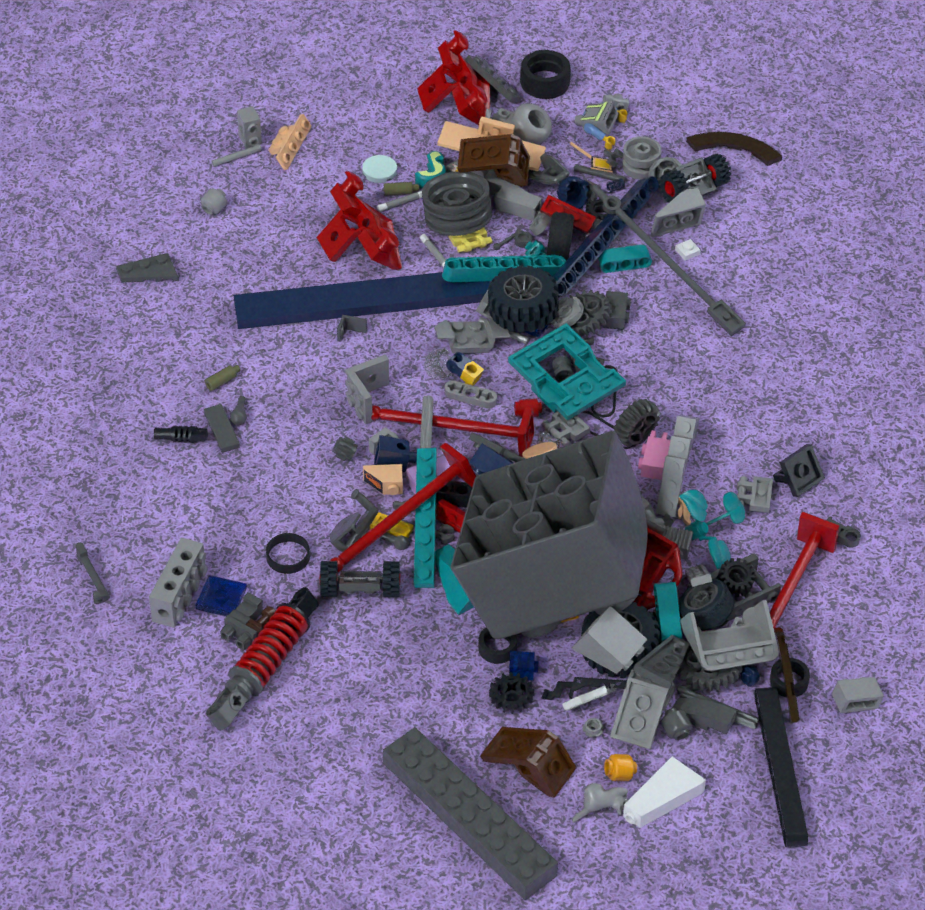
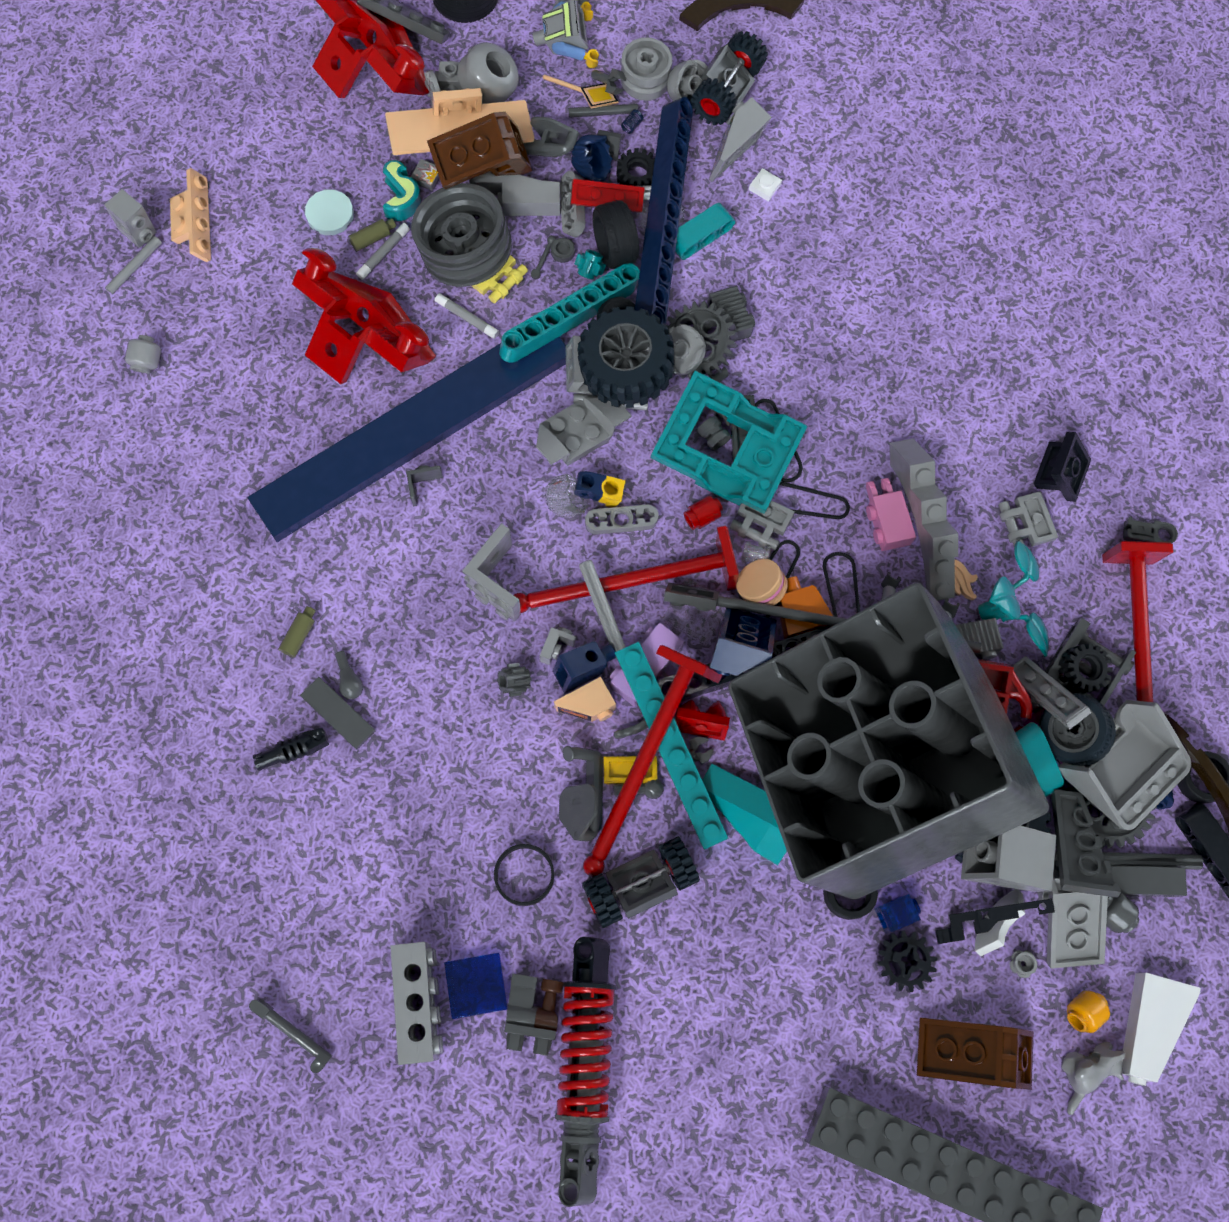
camera: 30 degrees left, 25 degrees up
(151, 268) = (110, 498): dark grey wing -> none
(637, 422) = (851, 484): dark grey gear -> none
(718, 310) = (852, 264): dark grey bar -> none

